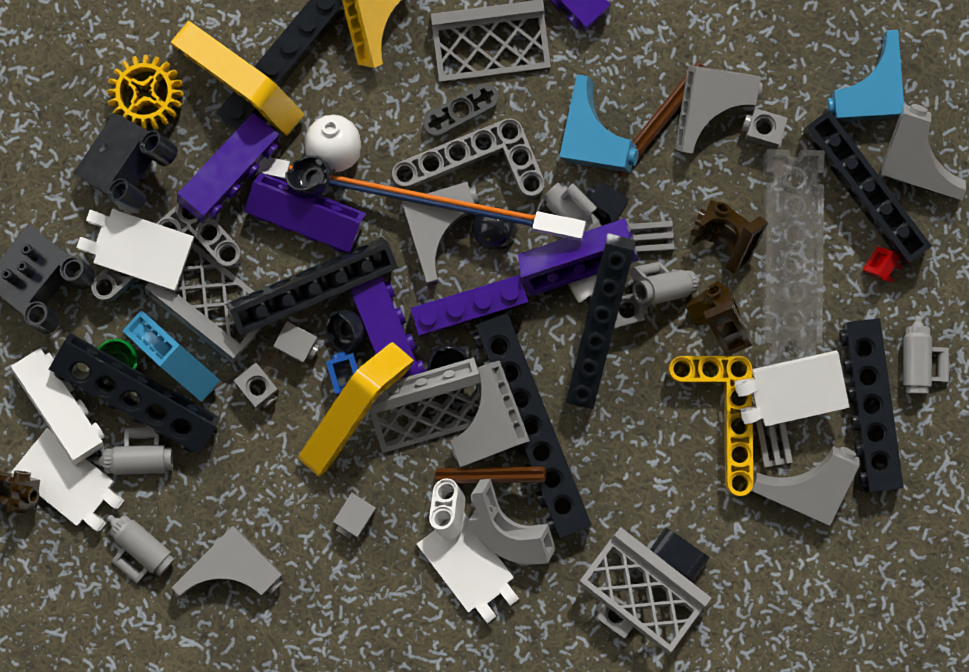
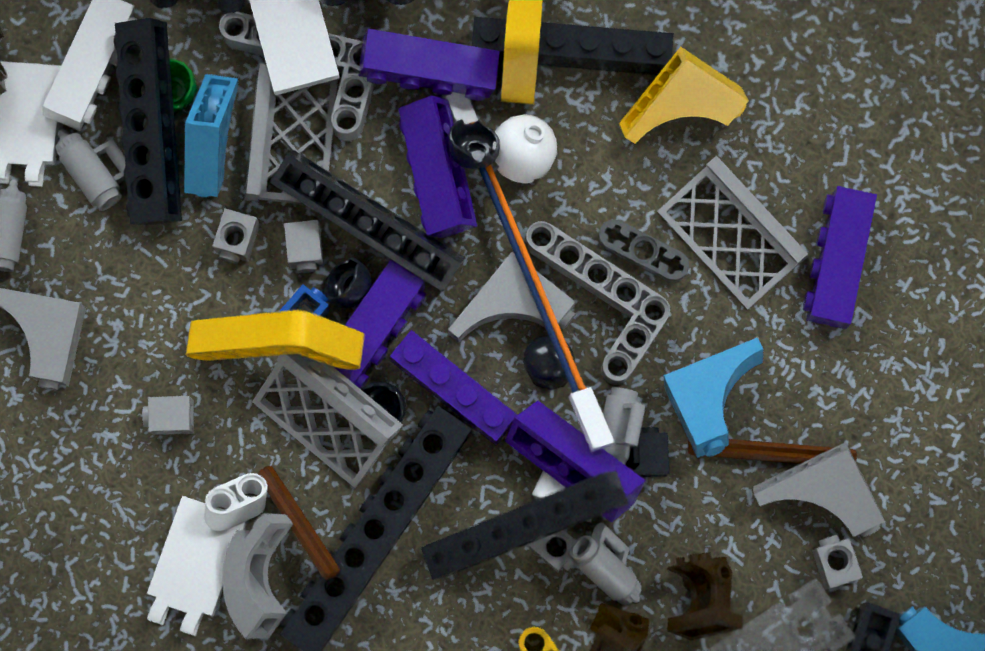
camera: 60 degrees right, 5 degrees down
(496, 422) = (356, 490): light grey arch -> none
(654, 225) = (650, 525): light grey tile -> none

